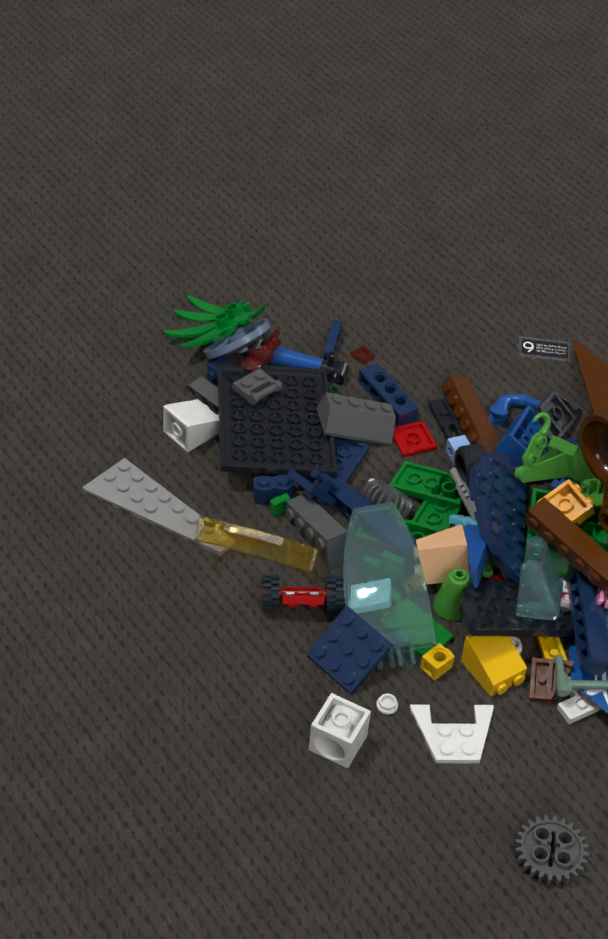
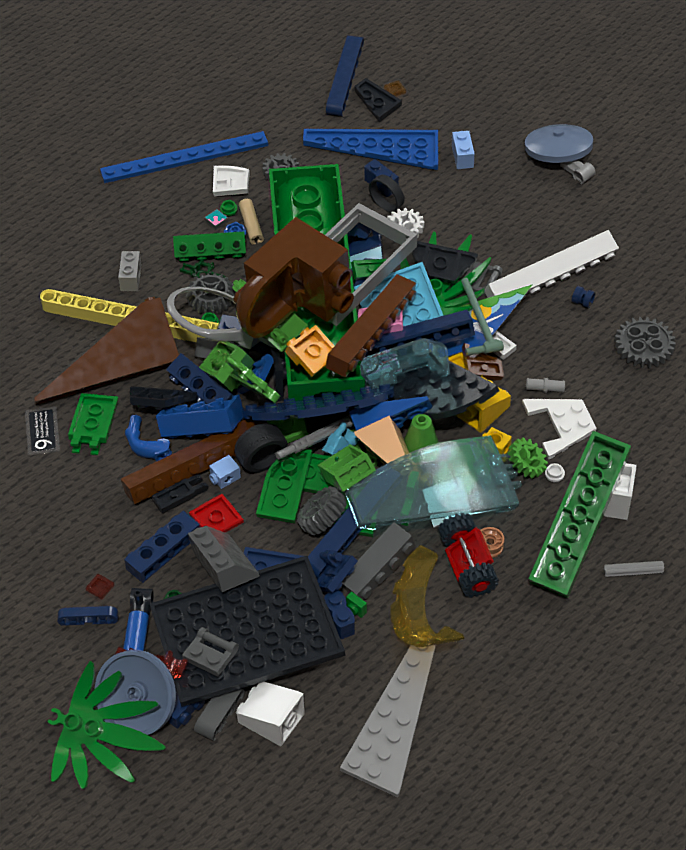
camera: 100 degrees left, 5 degrees up
(245, 733) = (633, 568): none -> light grey axle
(305, 672) = (580, 514): none -> green brick
(318, 615) = (494, 537): none -> nougat wheel
(350, 649) = (517, 503): dark blue plate -> none
(415, 670) = (527, 457): none -> bright green gear
(418, 507) = (340, 473): none -> bright green window
(509, 732) = (545, 385): none -> light grey pin
(543, 377) = (92, 421): none -> green tile

